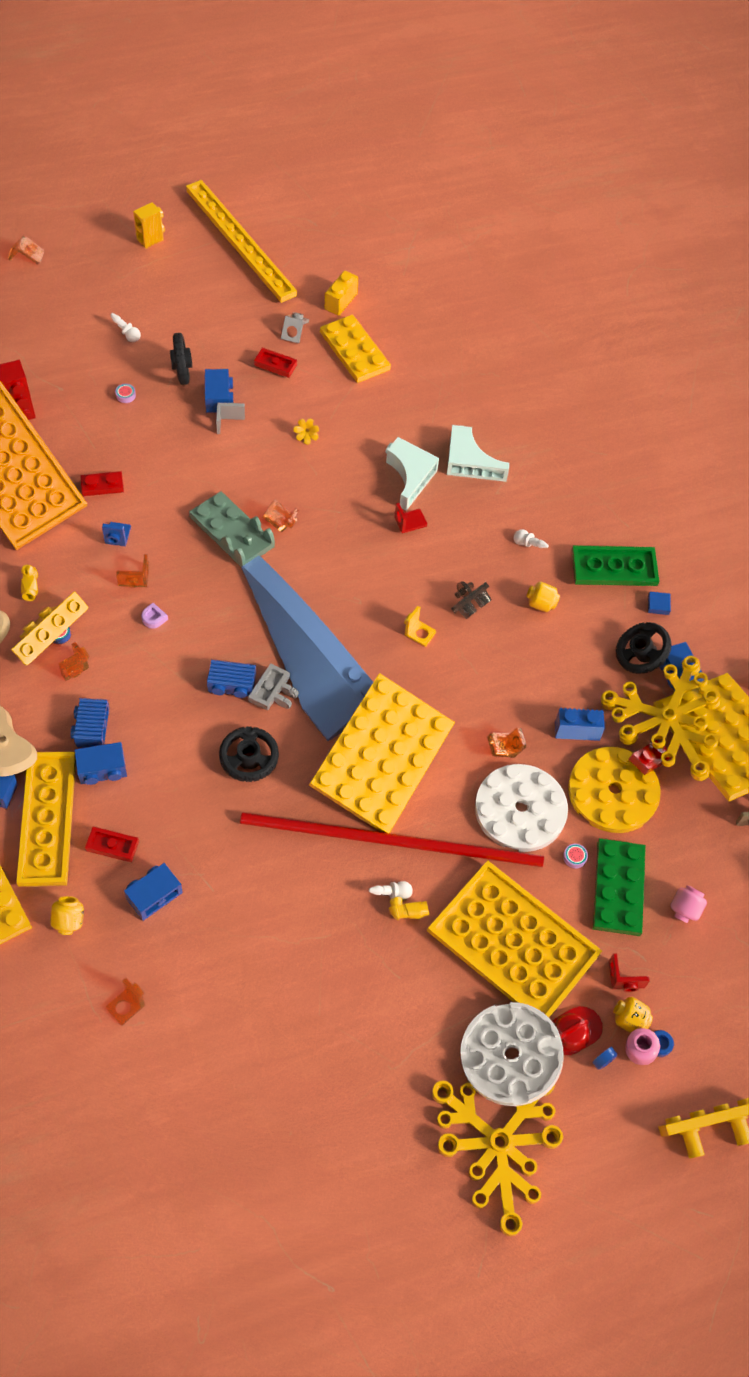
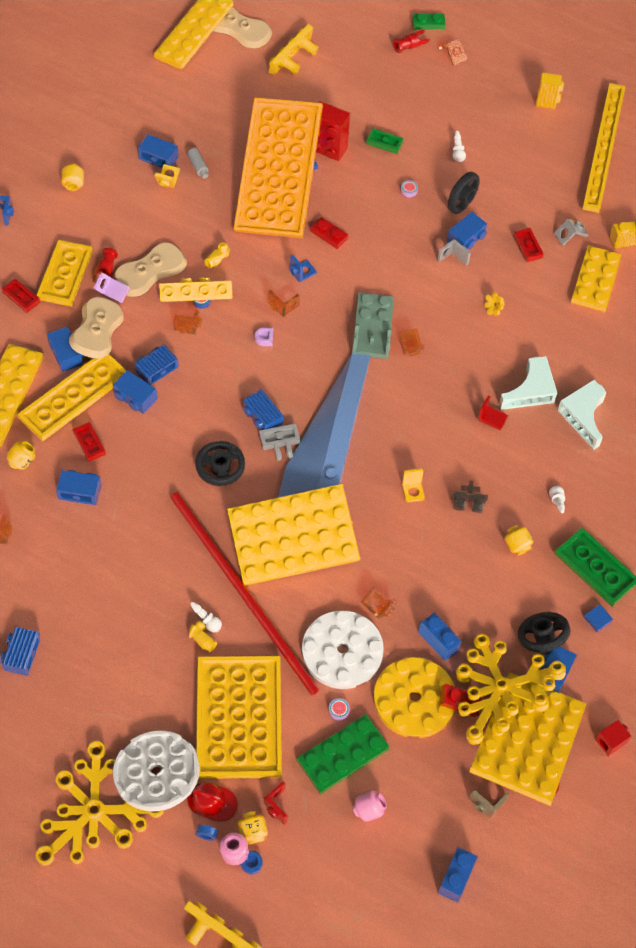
camera: 50 degrees right, 0 degrees up
(58, 369) = (385, 141): none -> green plate
(278, 1081) = (20, 651): none -> blue brick

